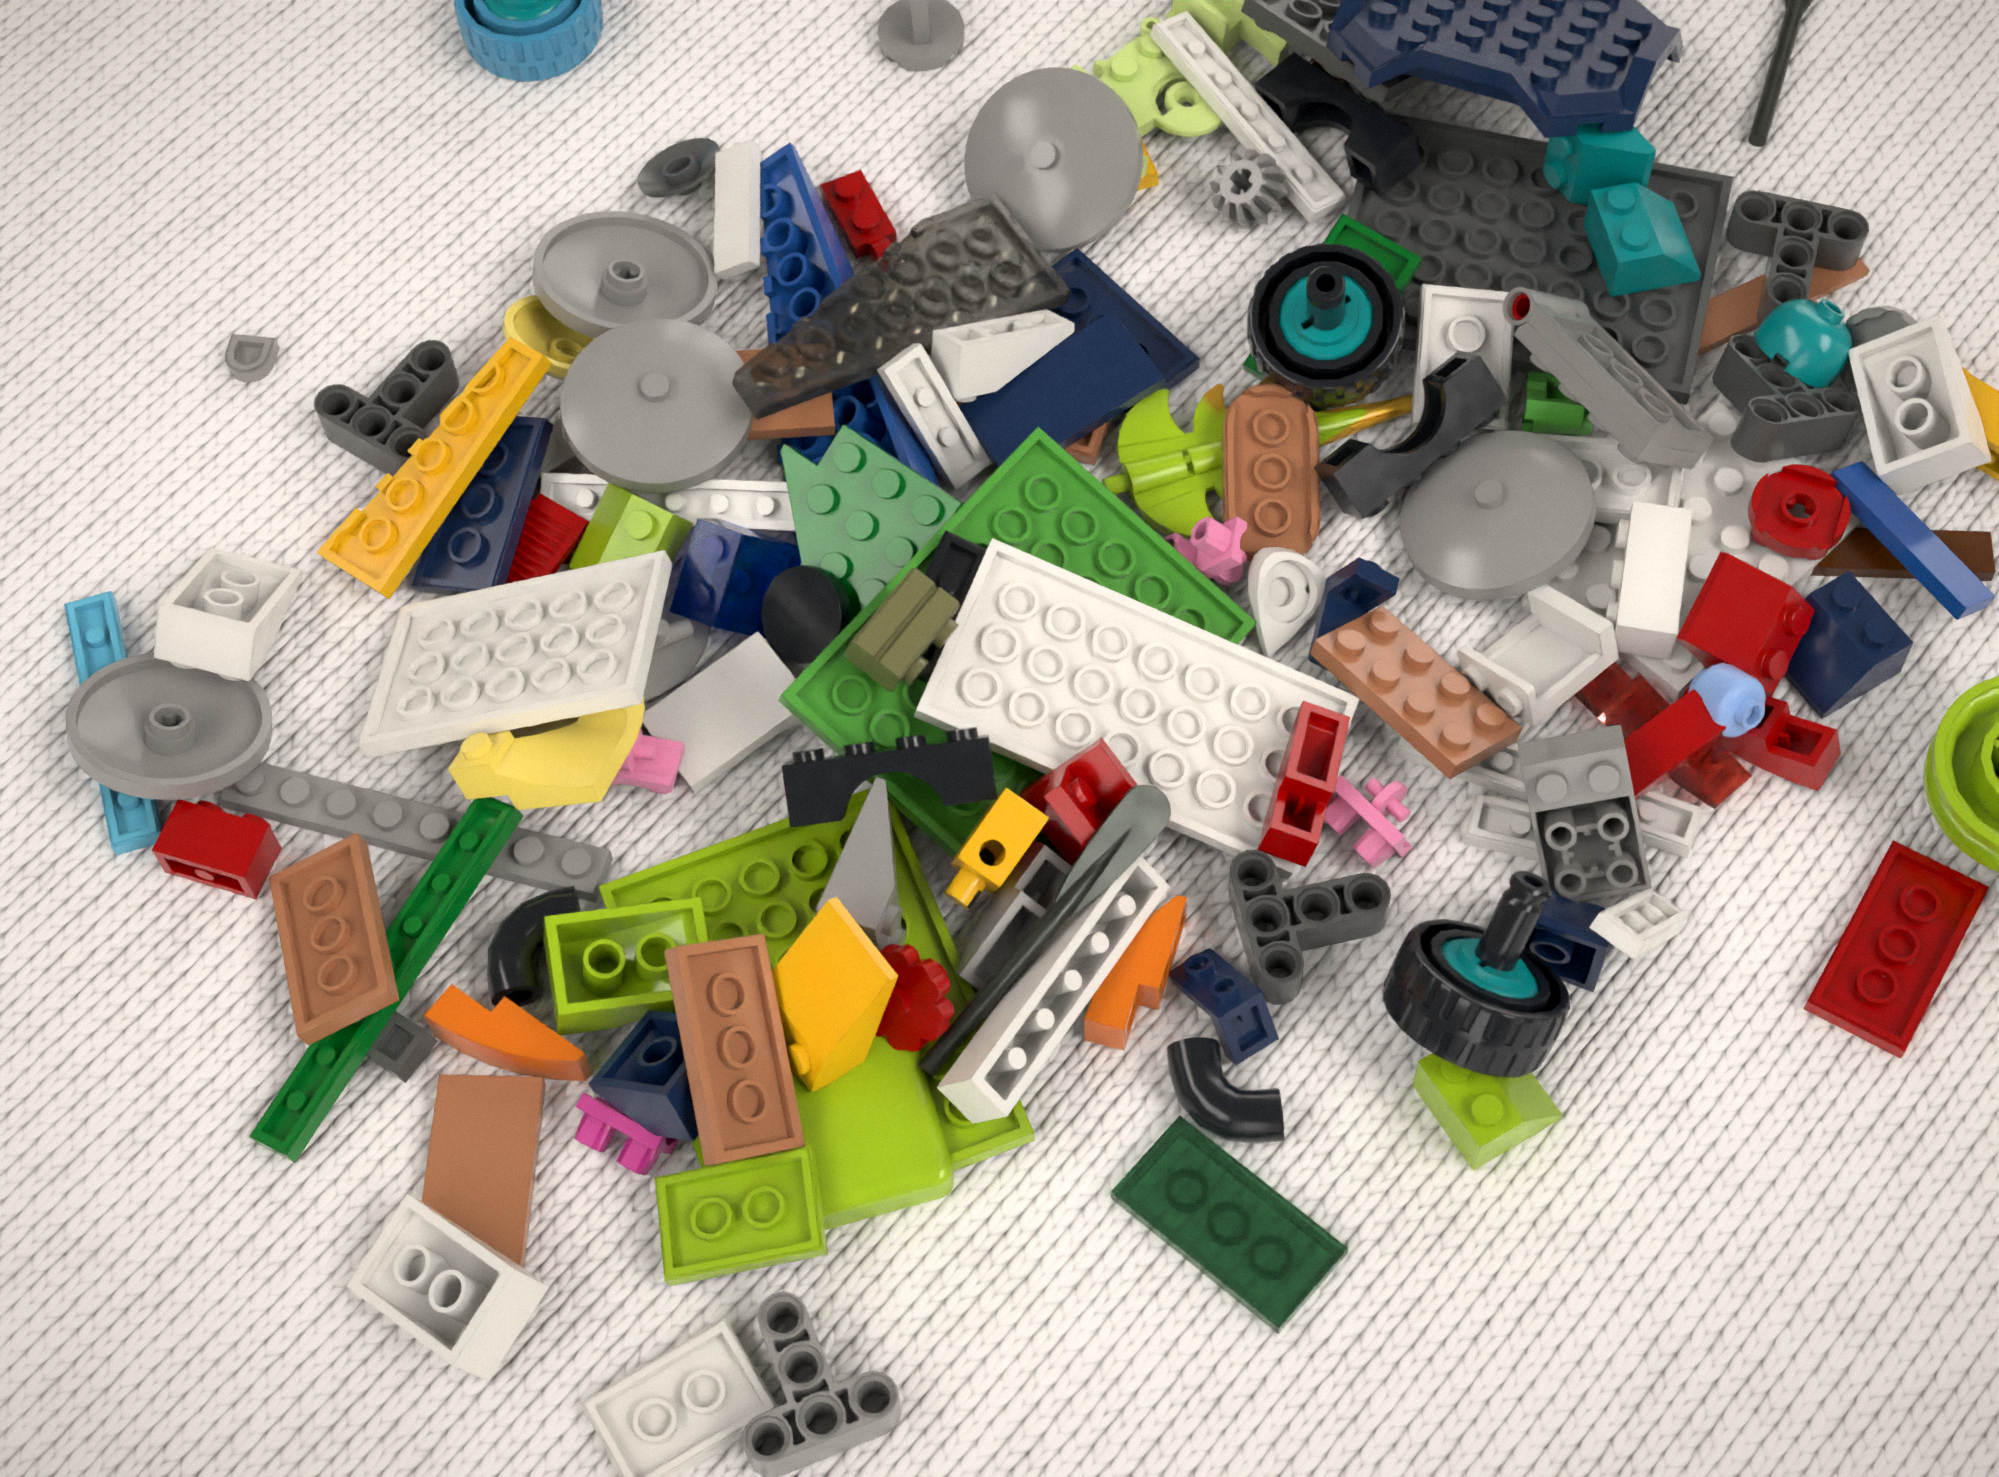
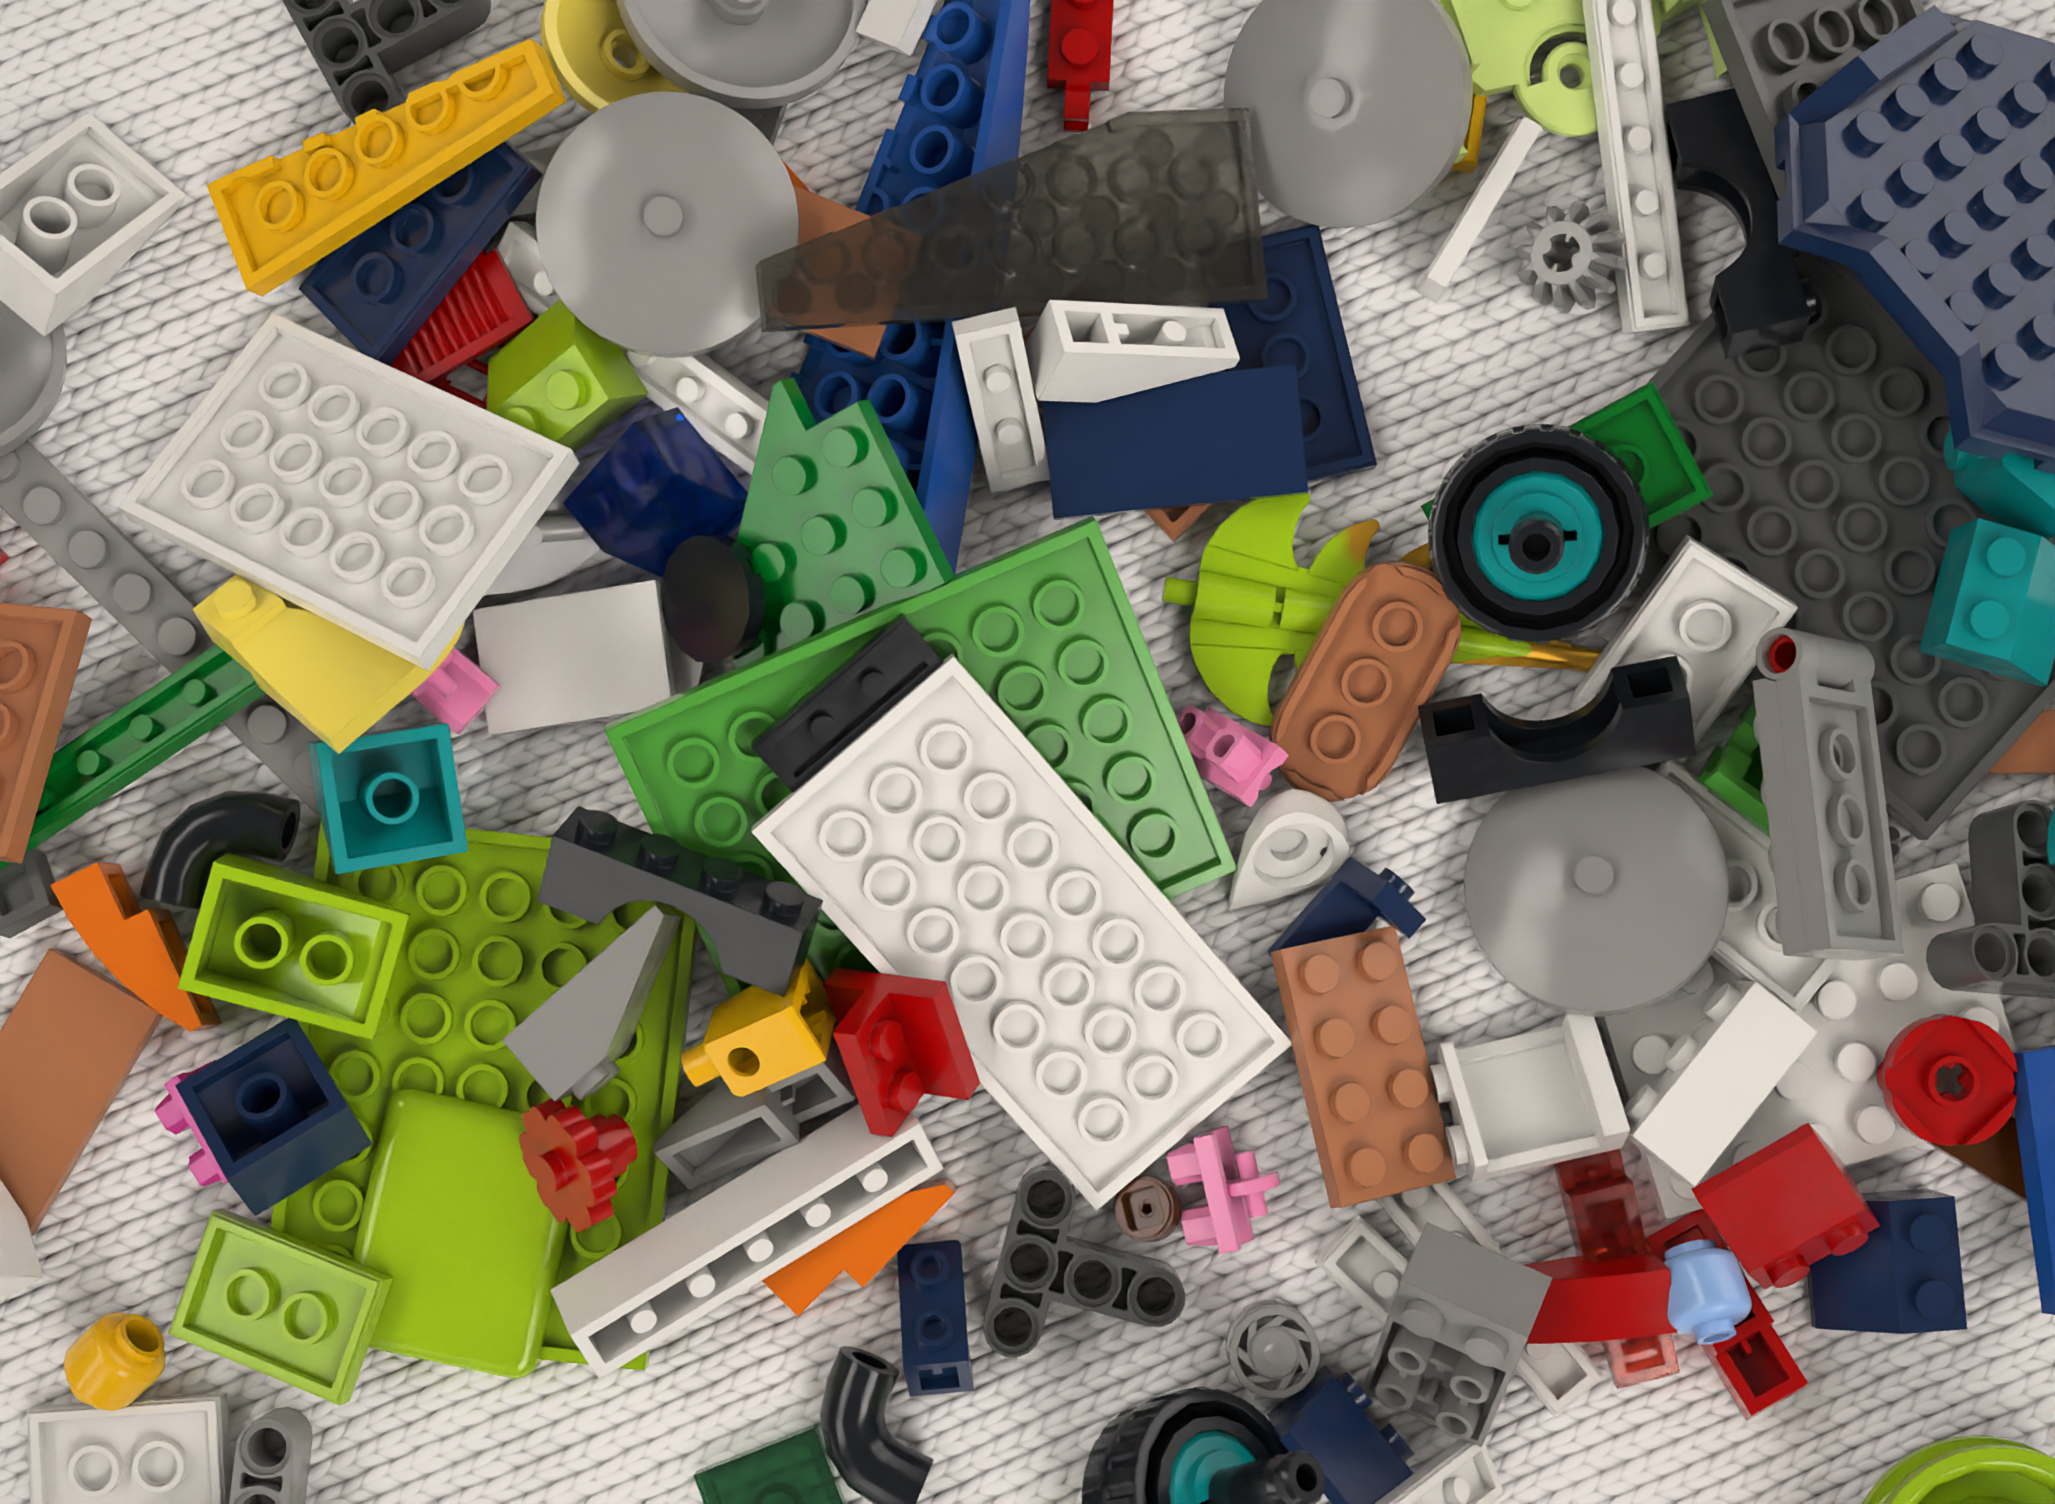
camera: 25 degrees right, 25 degrees up
(632, 1327) = (115, 1360): none -> yellow head
(640, 834) = (389, 797): none -> teal slope
(734, 1048) = (334, 1152): nougat plate -> none
(831, 996) = (465, 1139): yellow slope -> none
(903, 630) = (776, 741): olive brick -> none
(1105, 857) = (875, 1124): pearl dark grey piece -> none
(1174, 194) = (1479, 208): none -> white tile
(1304, 784) = (1164, 1127): red slope -> none
(1330, 859) = (1147, 1209): none -> reddish brown tile
(1467, 895) = (1272, 1349): none -> light grey wheel

